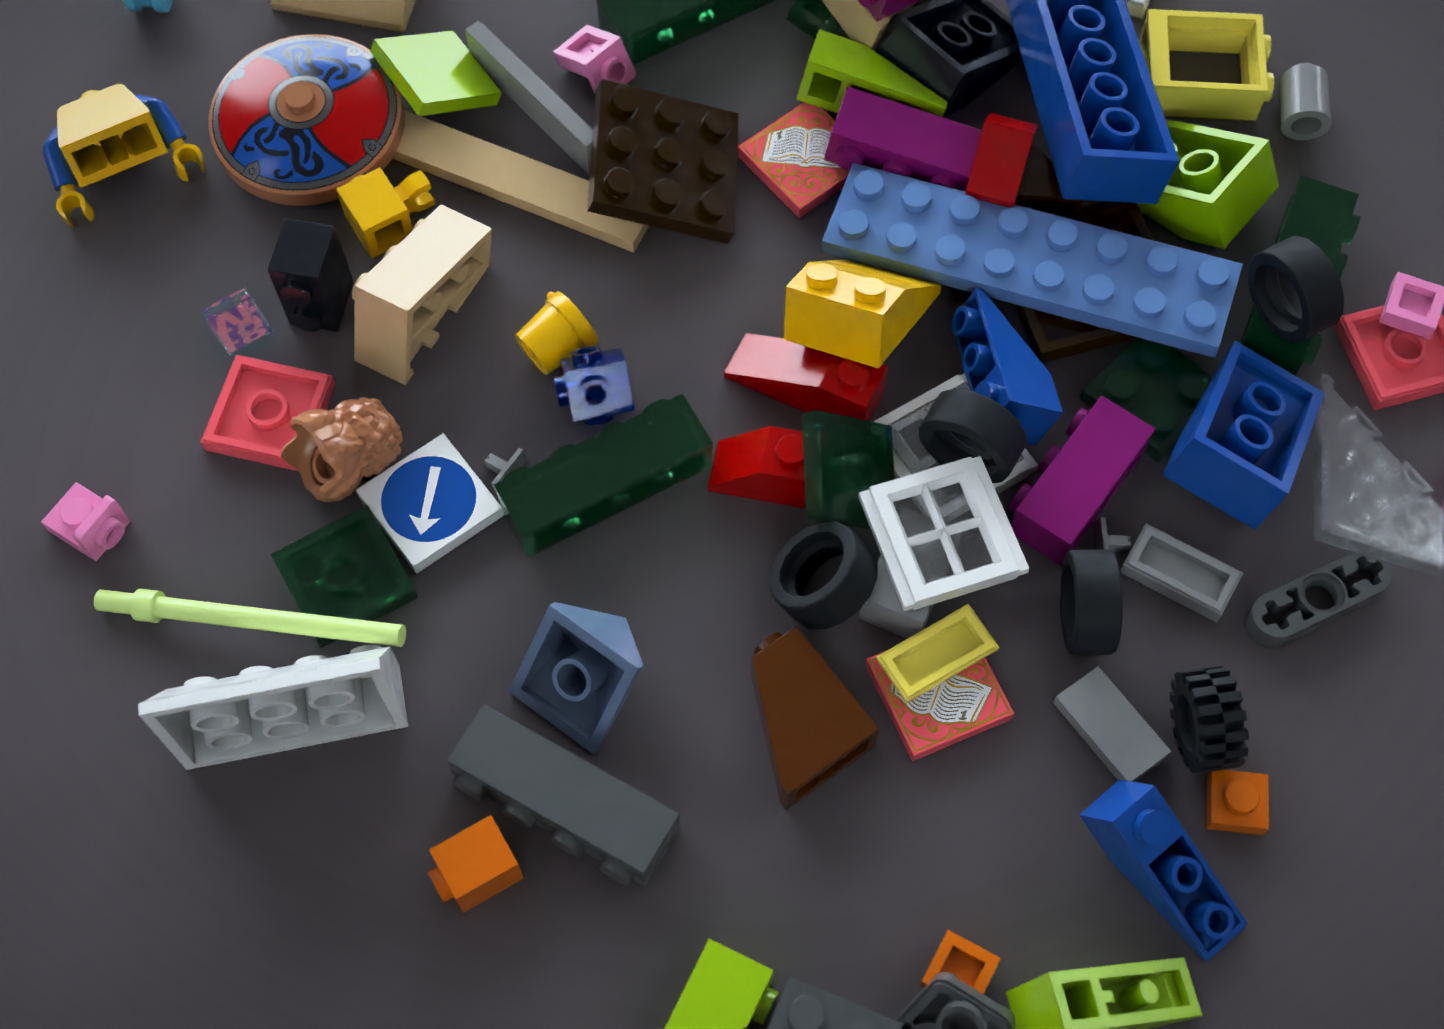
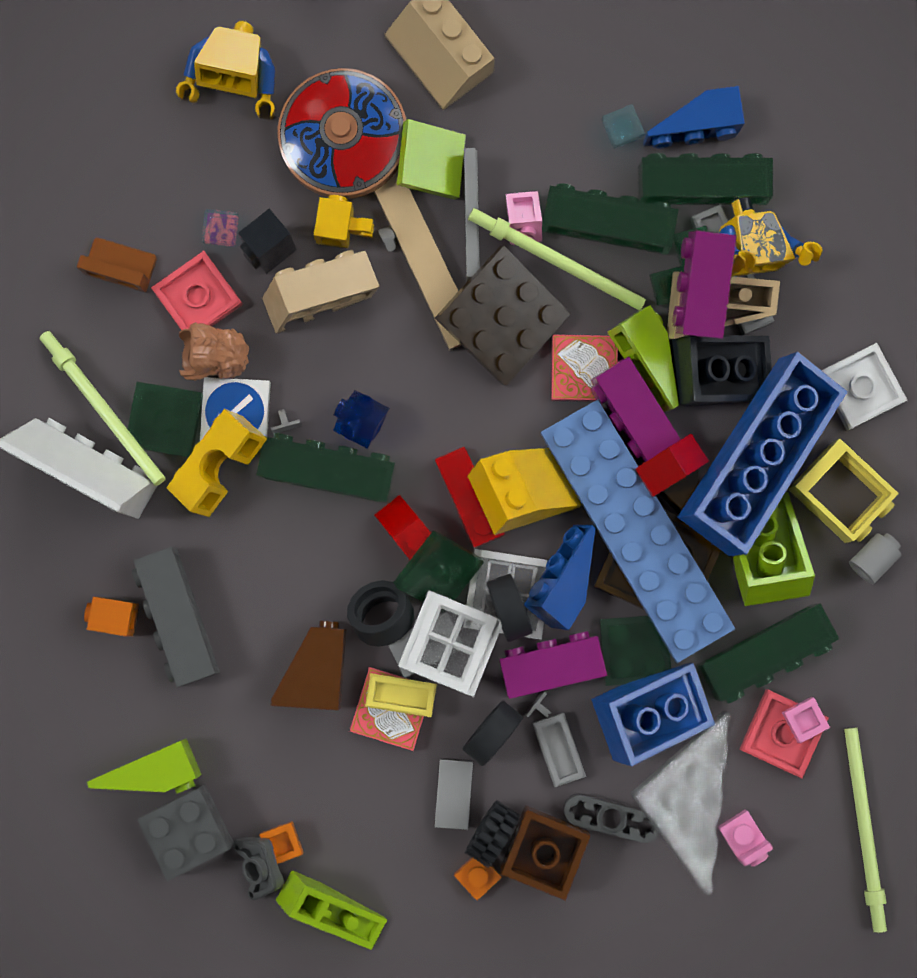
camera: 35 degrees right, 20 degrees up
(87, 521) = (67, 288): bright pink bracket -> none
(135, 451) = (118, 264): none -> dark orange panel
(449, 519) = (197, 480): none -> yellow arch
(455, 188) = (387, 237): none -> light grey piece
(555, 333) = (365, 372): yellow piece -> none
(579, 672) = (231, 564): sand blue slope -> none
(582, 74) = (500, 229): none -> yellowish green bar
(1164, 864) = (413, 875): blue slope -> none
(1295, 289) = (736, 671): black tyre -> none
(1295, 689) = (545, 852): none -> reddish brown brick

